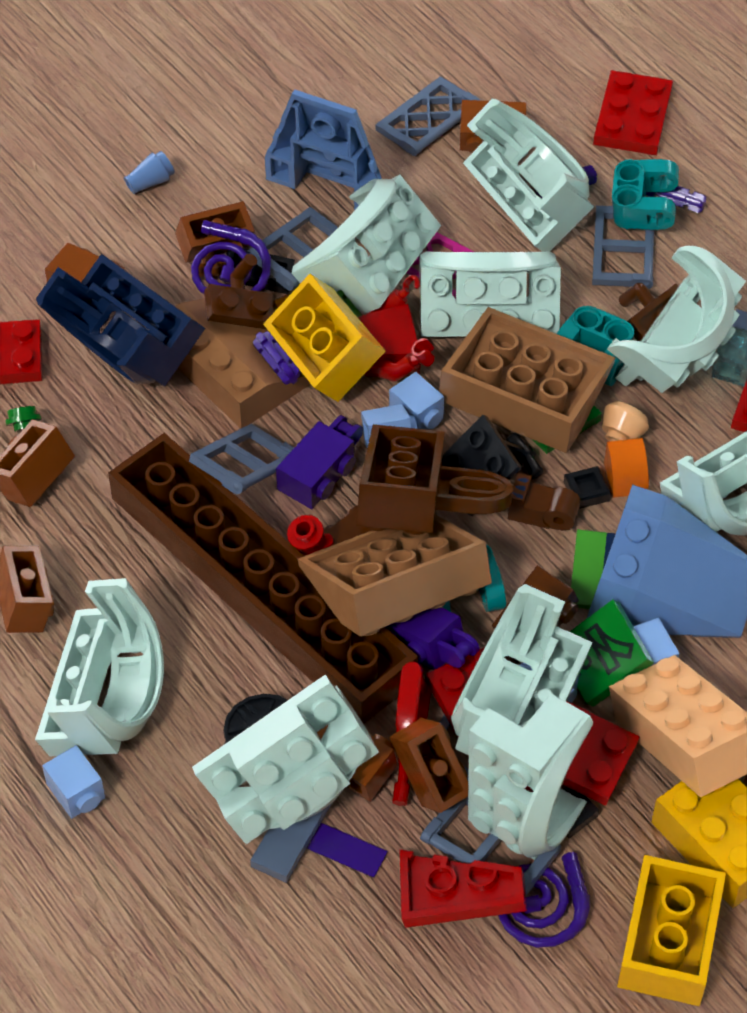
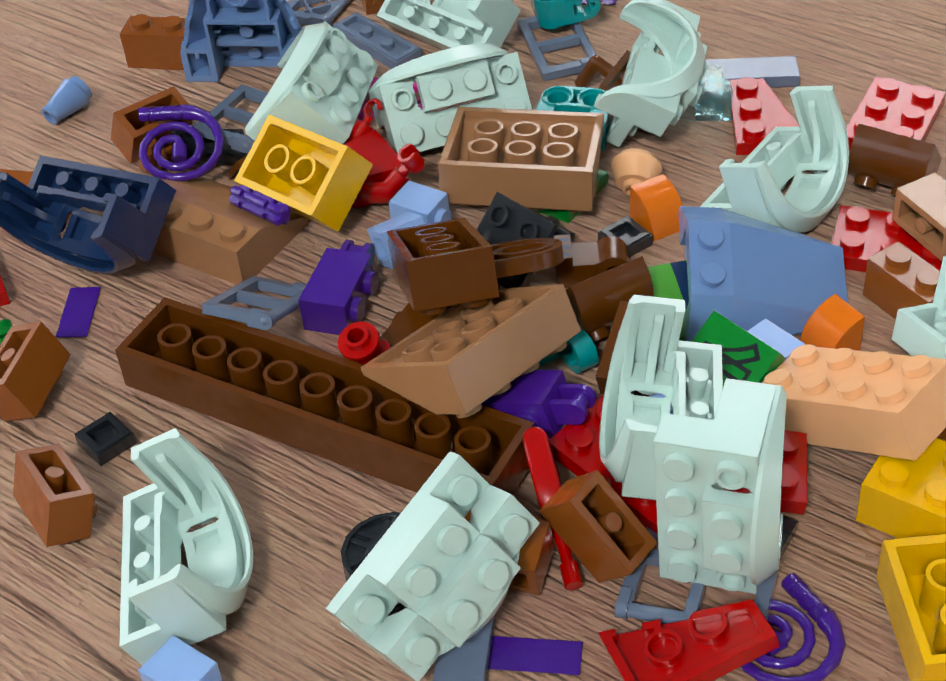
camera: 15 degrees left, 10 degrees down
(80, 545) = (105, 438): none -> black tile
(95, 409) = (78, 312): none -> dark purple sticker
(235, 303) = (198, 173): reddish brown plate -> none
(246, 129) = (153, 42): none -> dark orange brick
(455, 189) = (378, 41): none -> sand blue tile
(523, 549) = (598, 298): none -> reddish brown brick
(714, 647) = (834, 325): none -> orange brick

